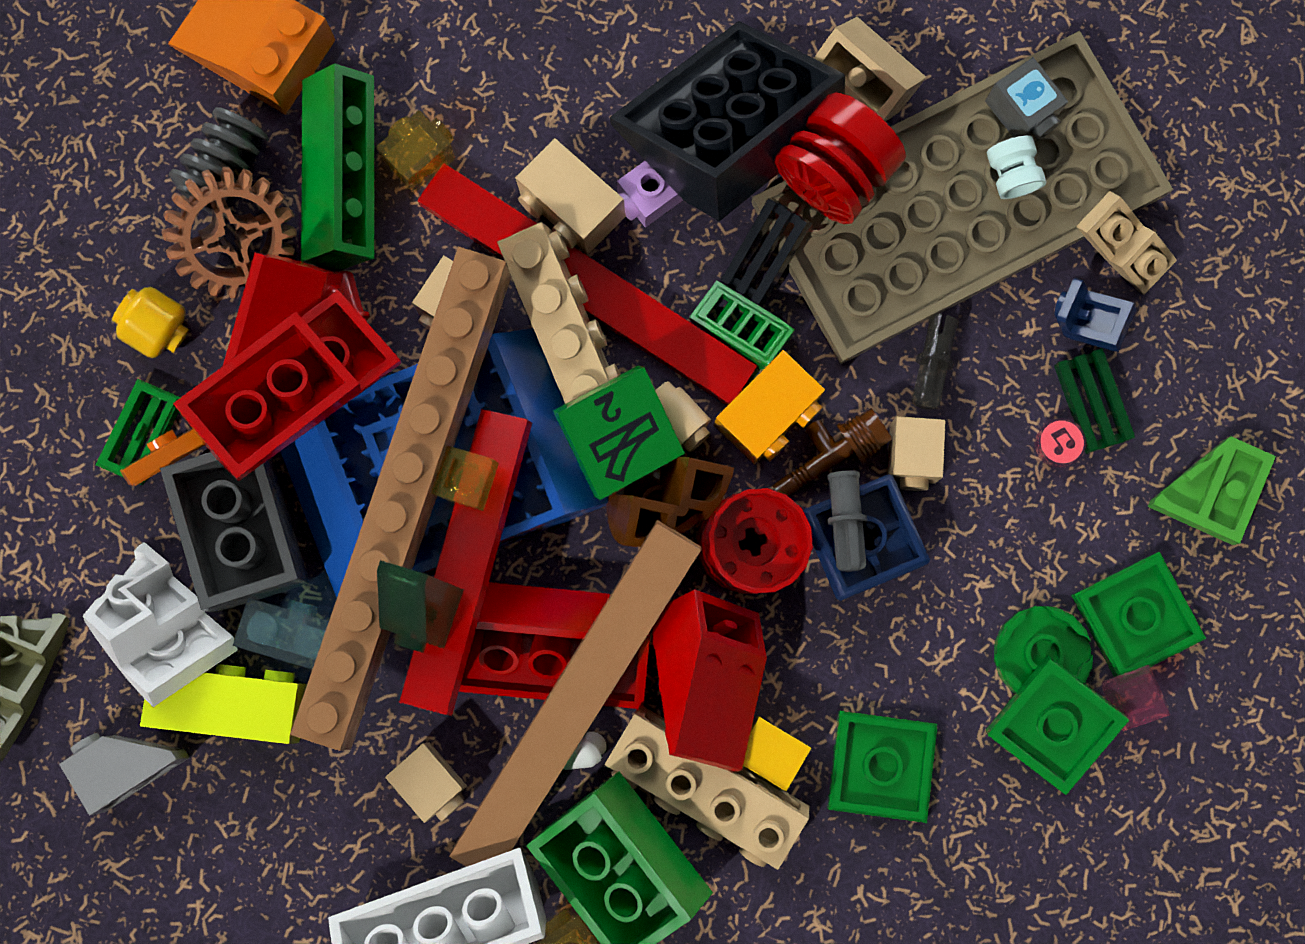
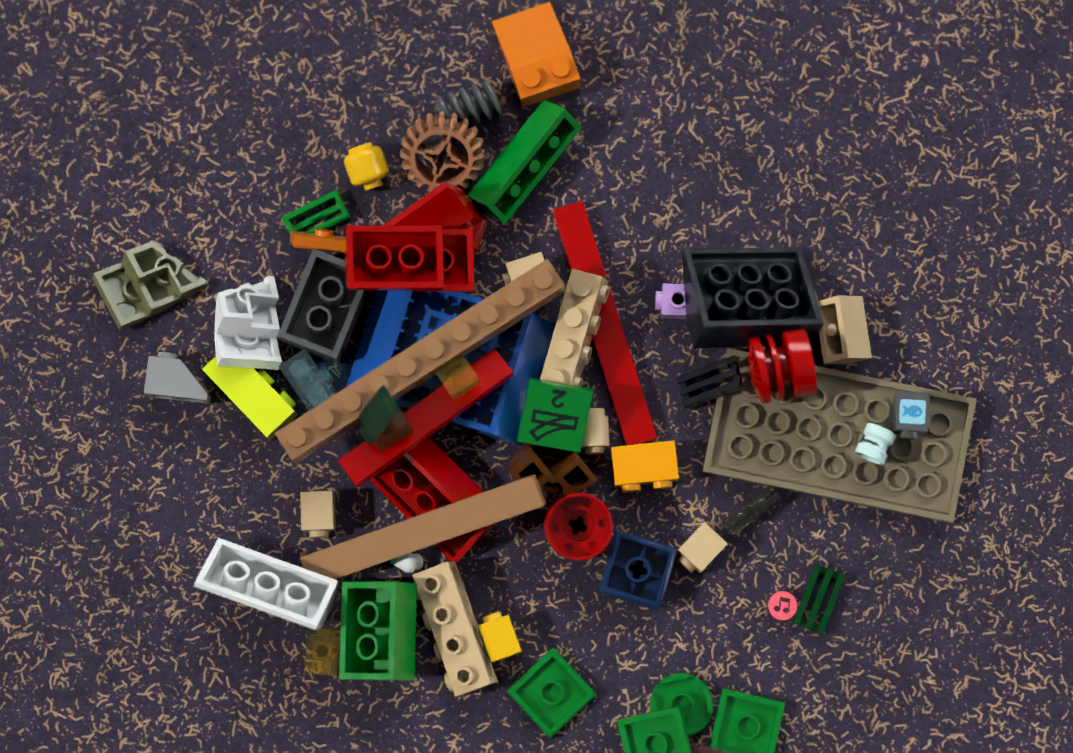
camera: 45 degrees right, 0 degrees up
(416, 149) = (574, 183): clear yellow brick -> none
(569, 197) = (631, 271): tan brick -> none
(709, 677) = (498, 573): red slope -> none
(765, 320) = (677, 434): green slope -> none
(847, 520) = (632, 553): dark grey axle -> none
(861, 437) = (679, 517): reddish brown piece -> none
(1093, 316) = (854, 554): dark blue bracket -> none
(1126, 243) = (904, 530): tan slope -> none
(1218, 490) = (842, 696): bright green wing -> none

